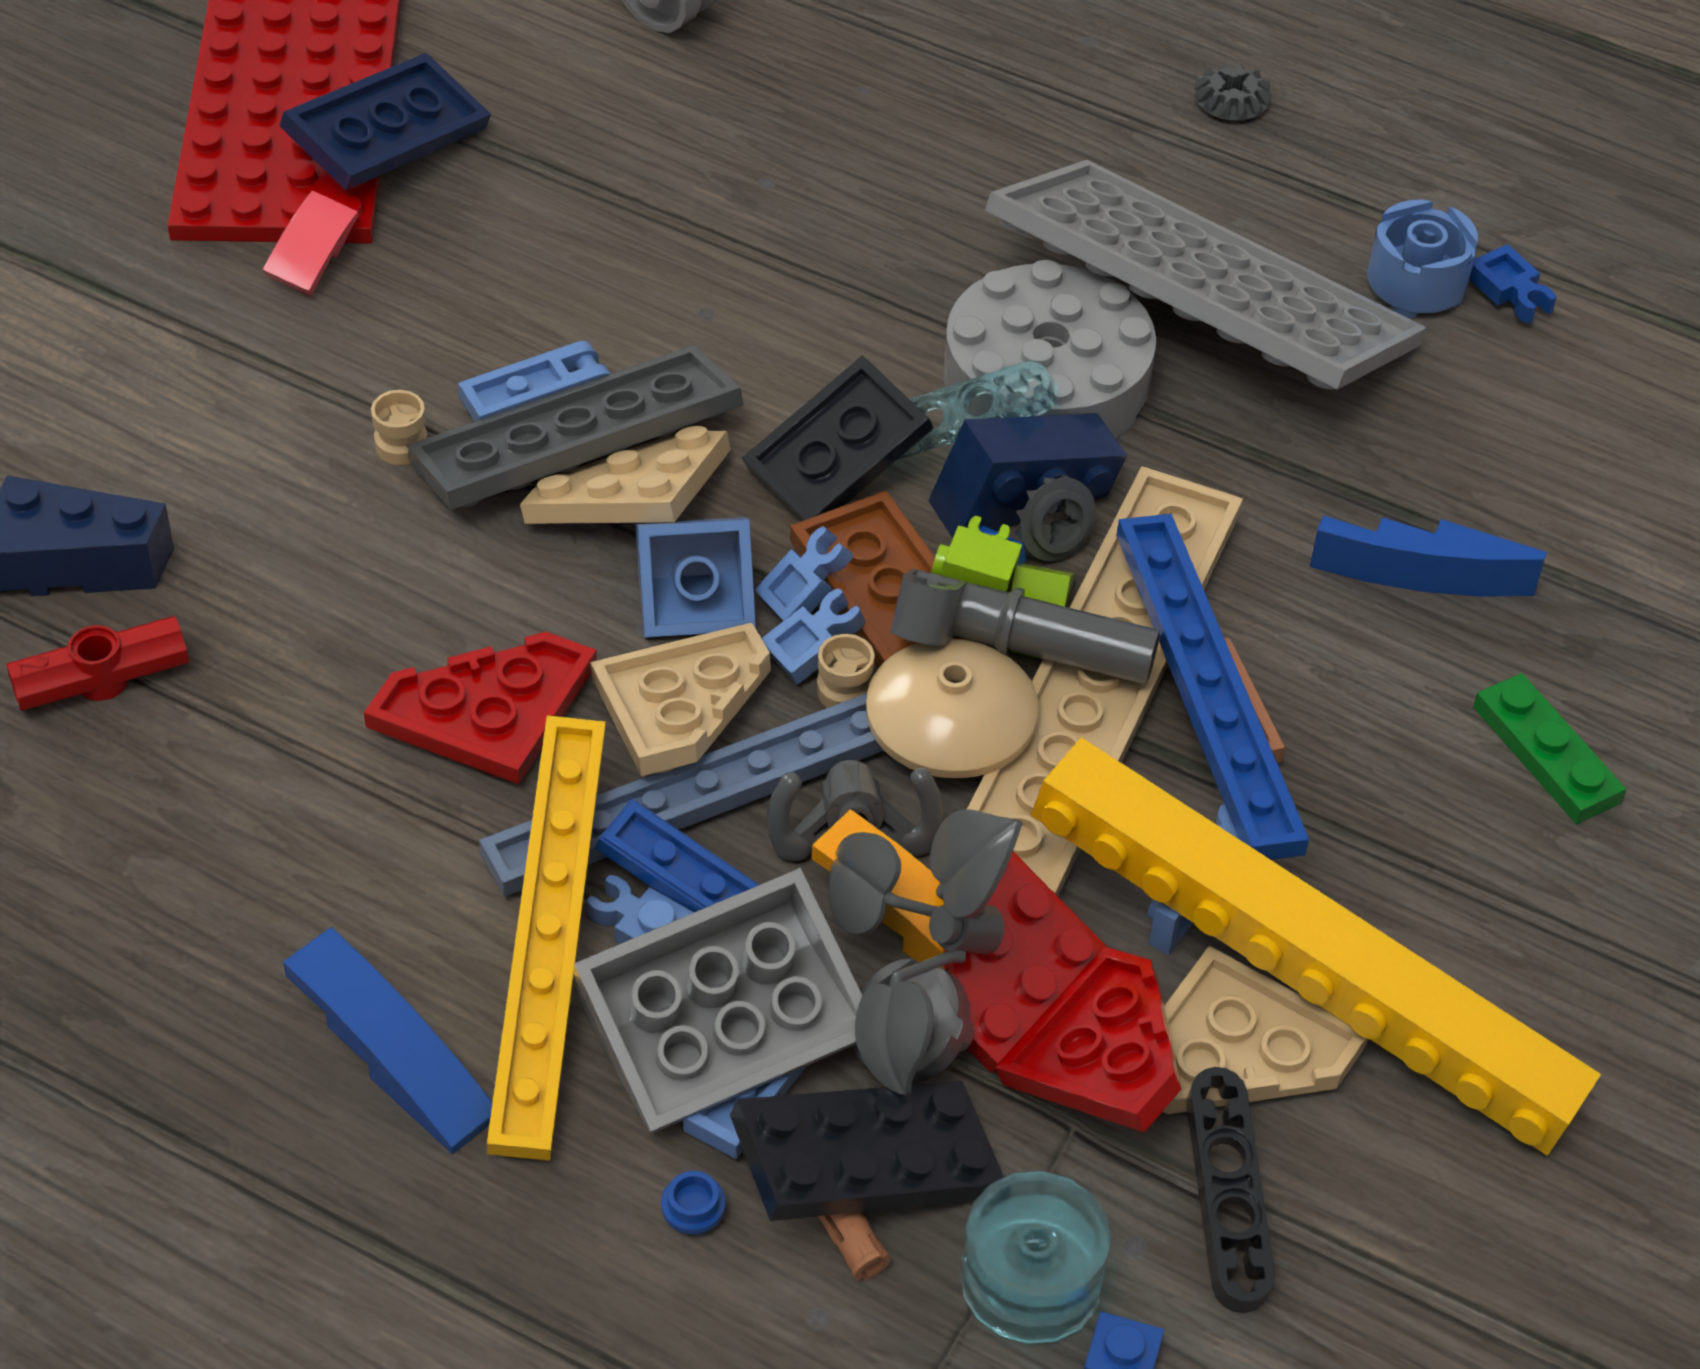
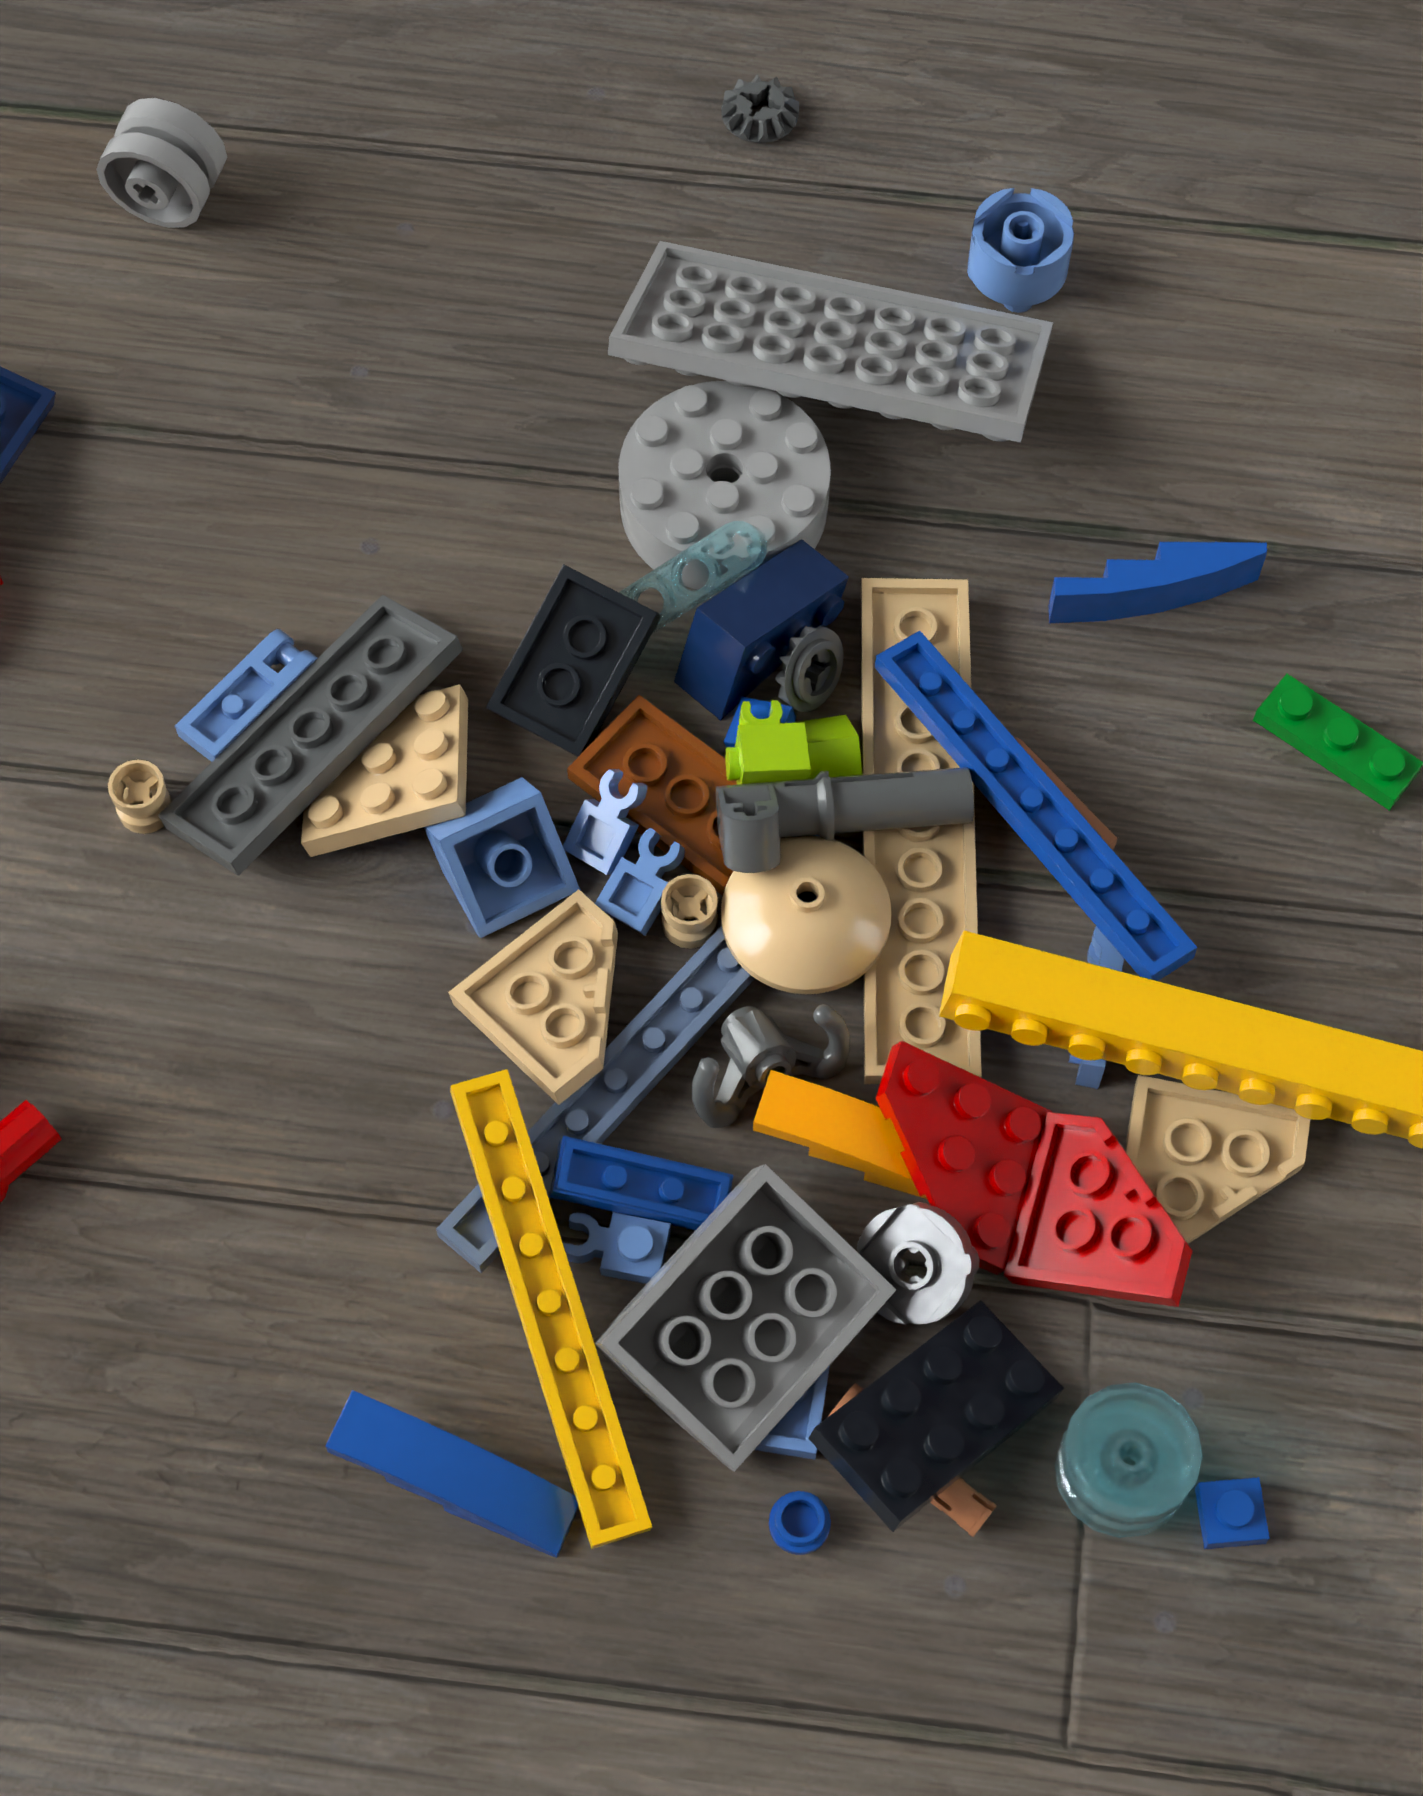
camera: 20 degrees left, 15 degrees up
(485, 703) = (369, 1073): red plate -> none
(969, 862) = (949, 1146): dark grey plant -> none
(1235, 1187) = (1267, 1311): black beam -> none
(1509, 277) = (1105, 238): blue plate -> none

